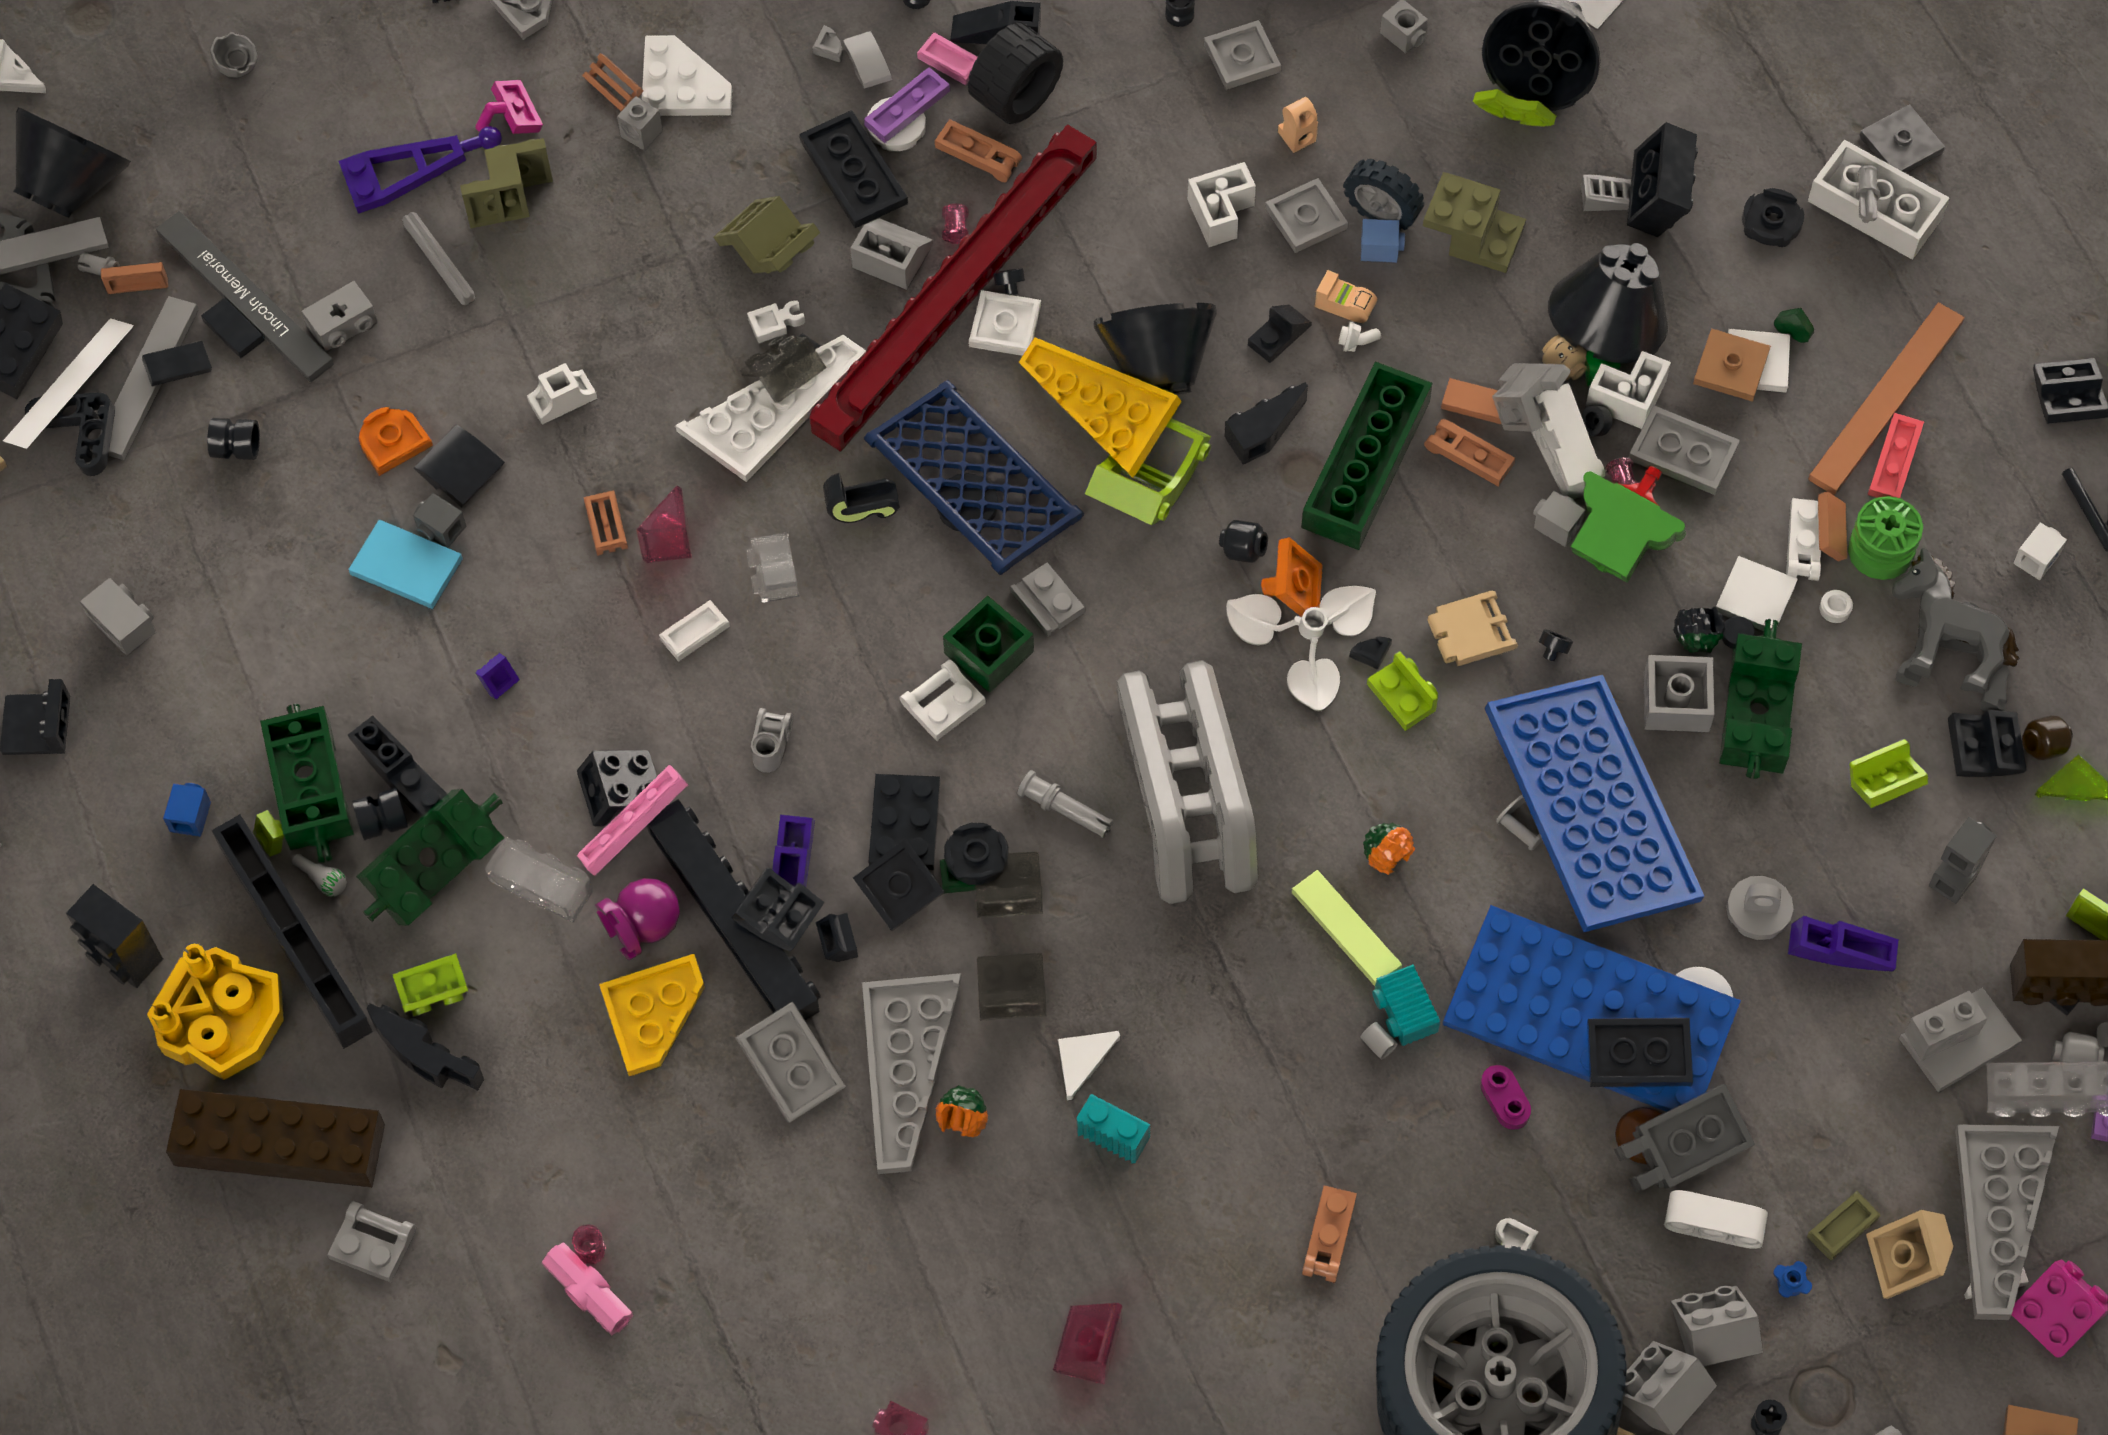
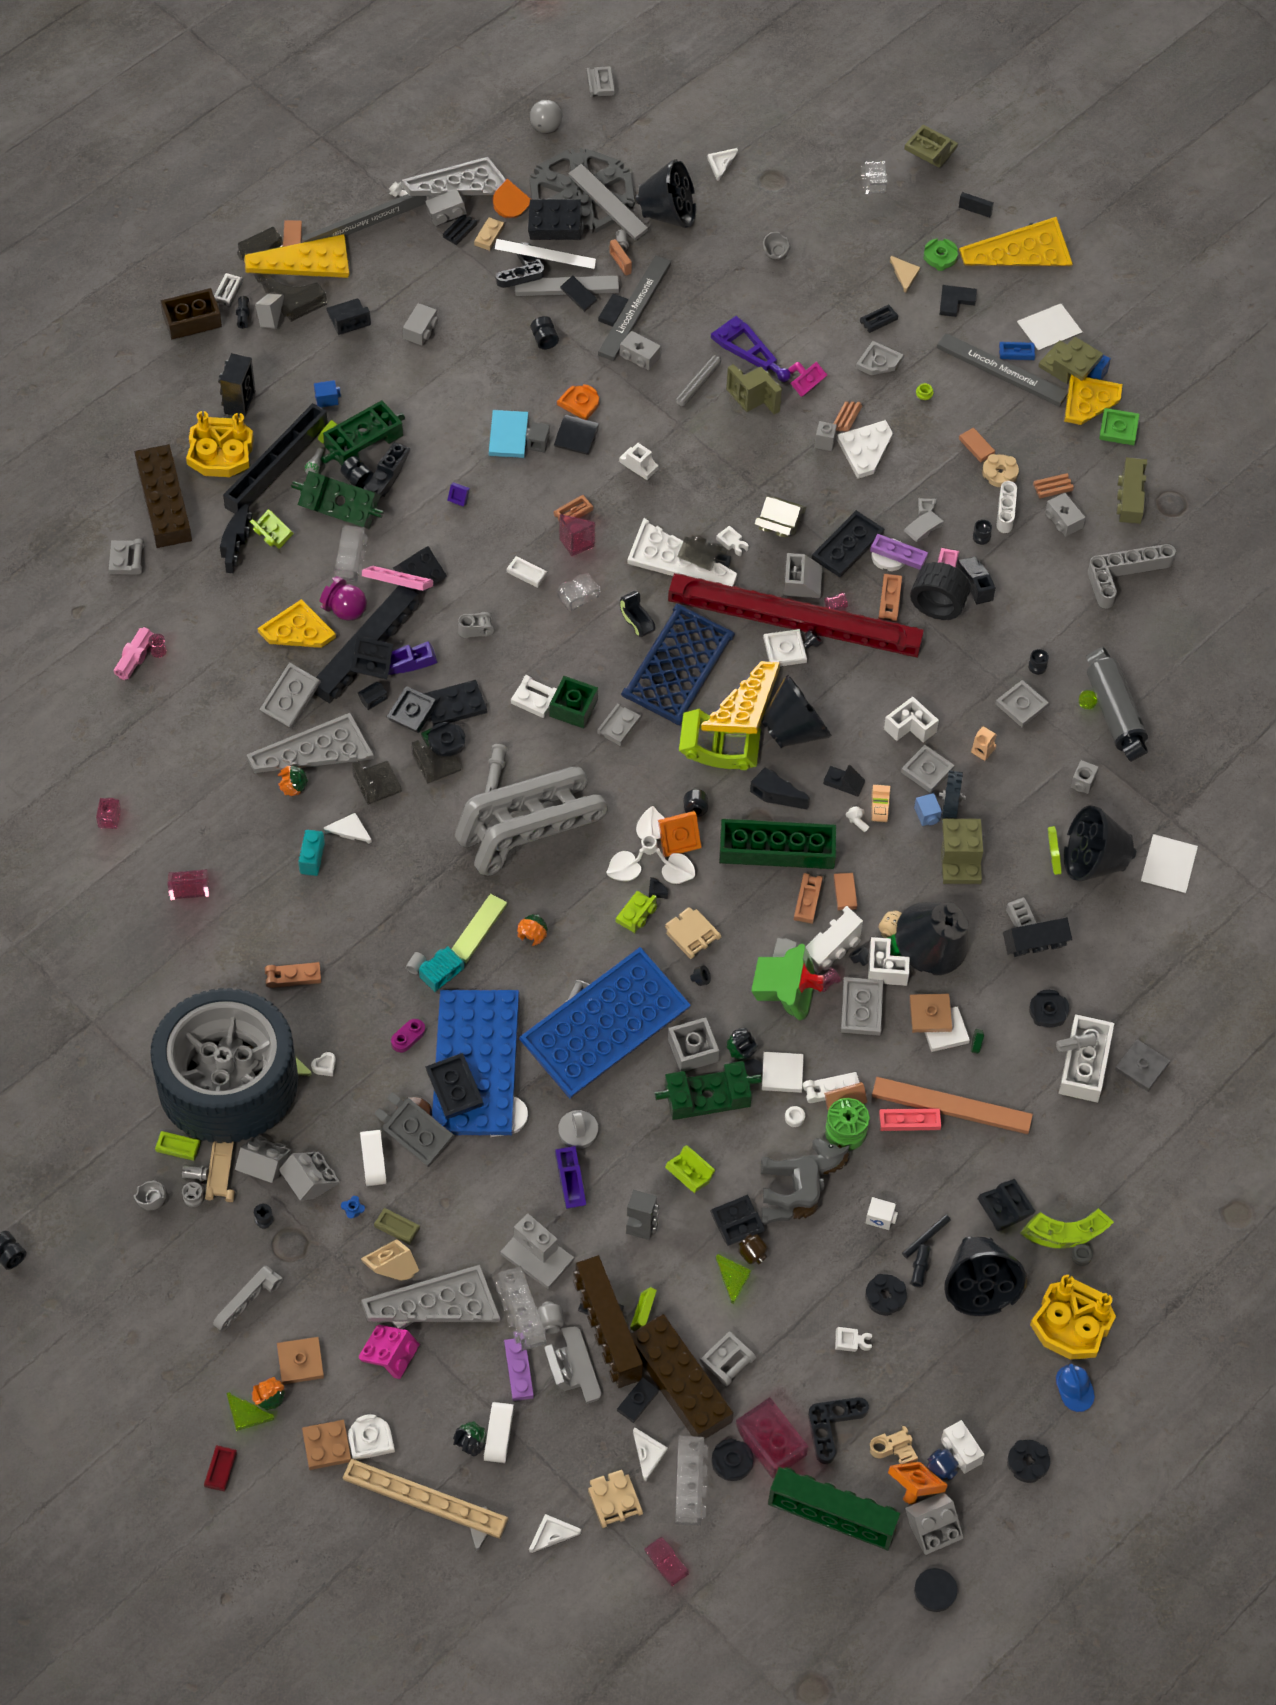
camera: 65 degrees right, 5 degrees down
(1519, 387) = (843, 901): light grey plate -> none

